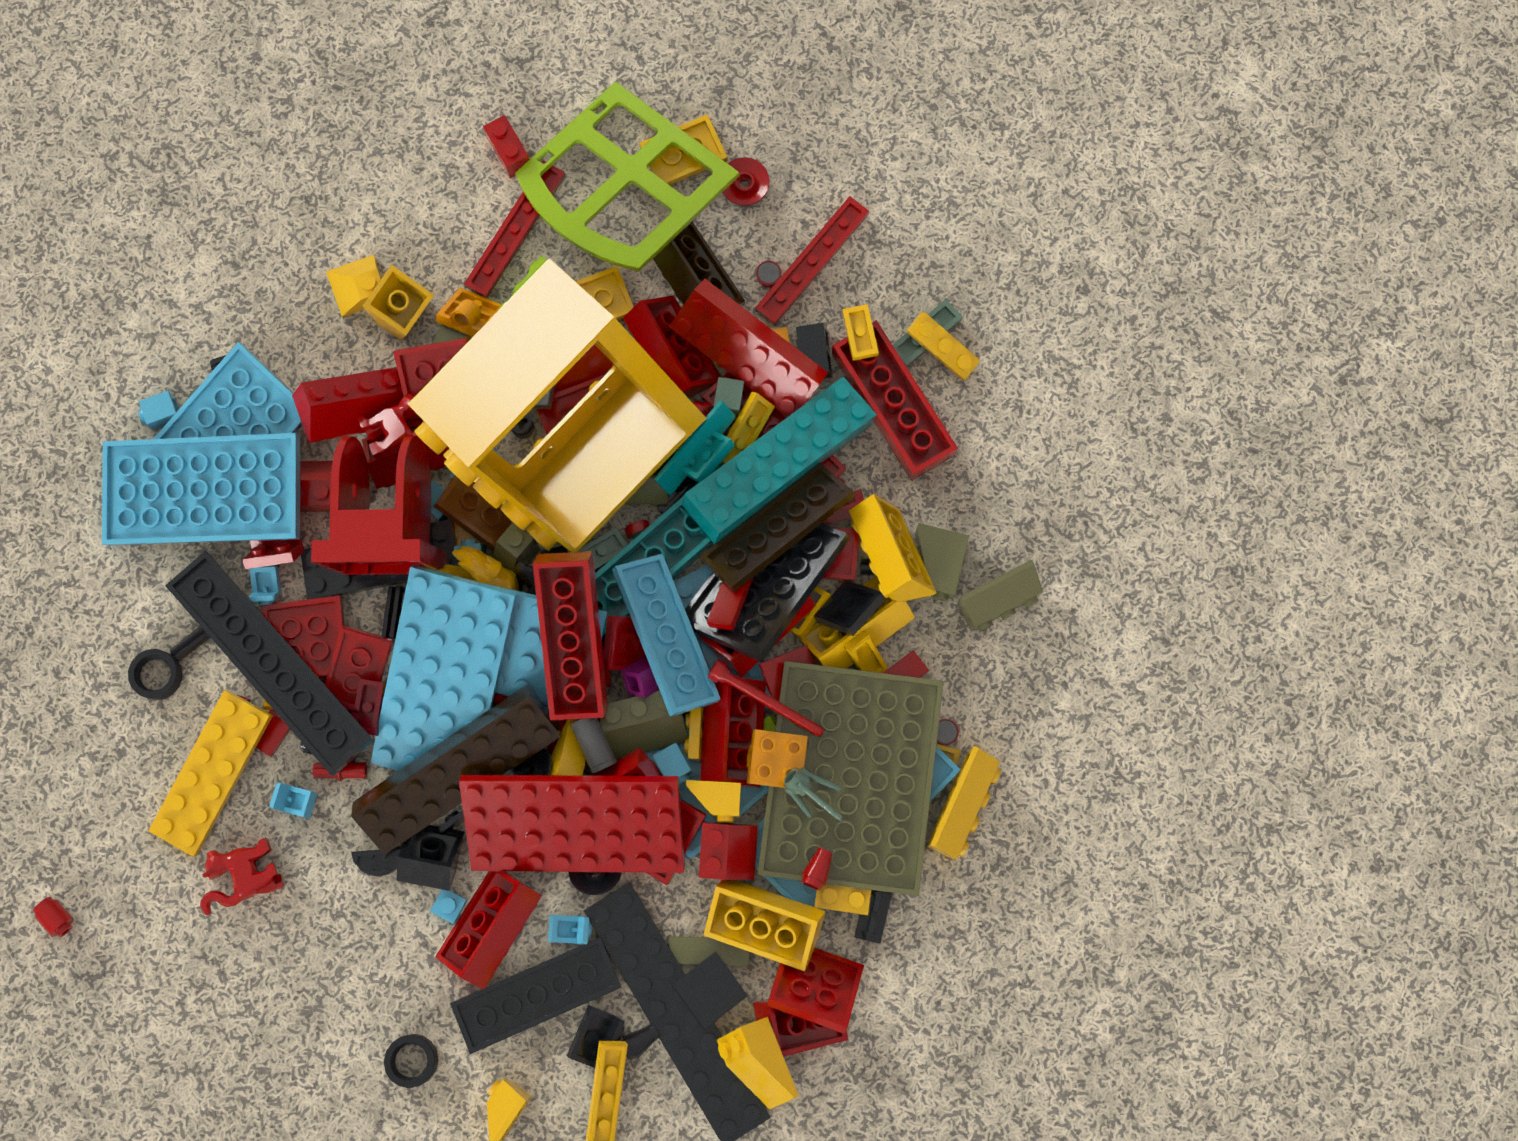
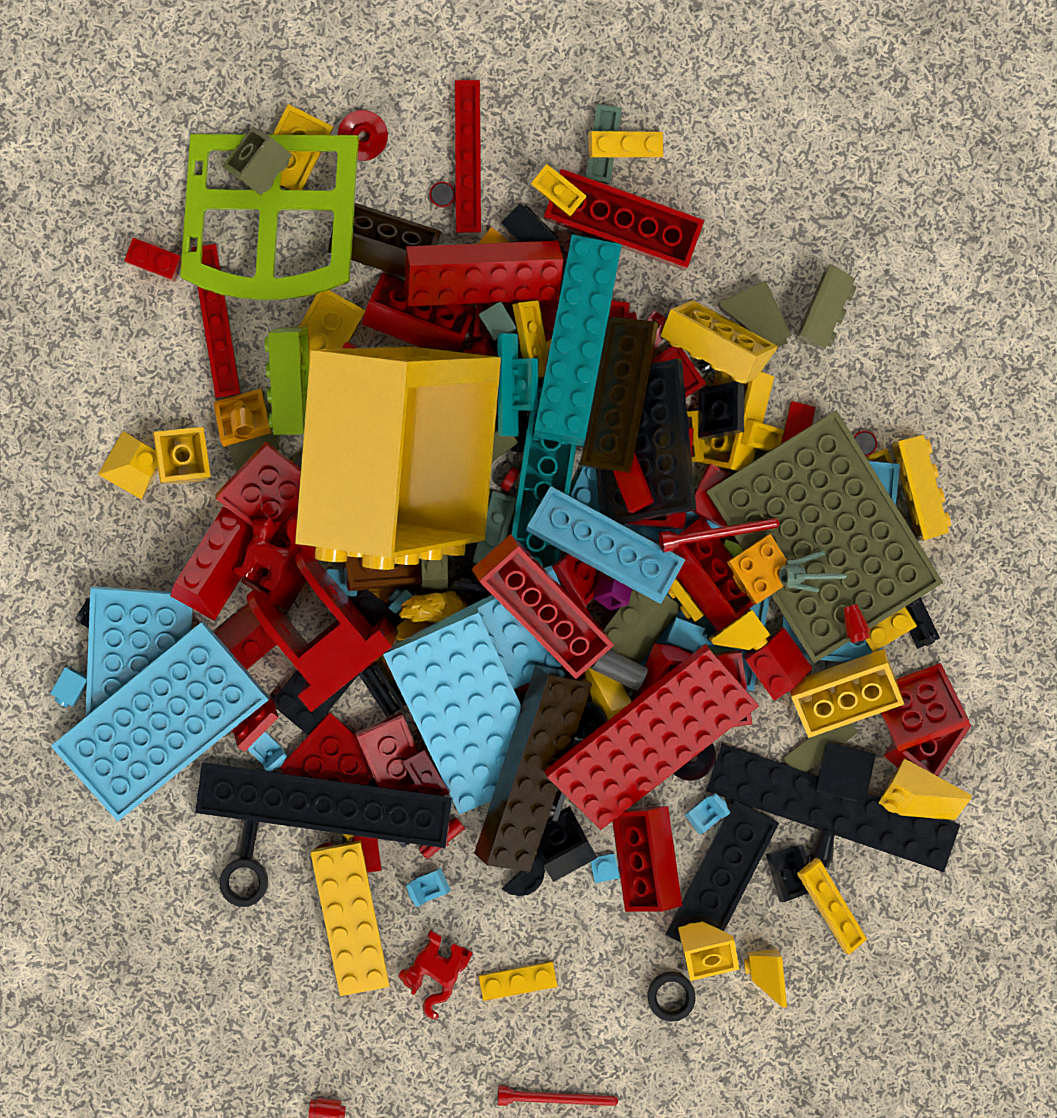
camera: 40 degrees left, 10 degrees up
(208, 1031) = (508, 1095): none -> red piece
(299, 941) = (518, 981): none -> yellow plate
(470, 1044) = (707, 950): none -> yellow slope
(647, 133) = (257, 161): none -> olive slope

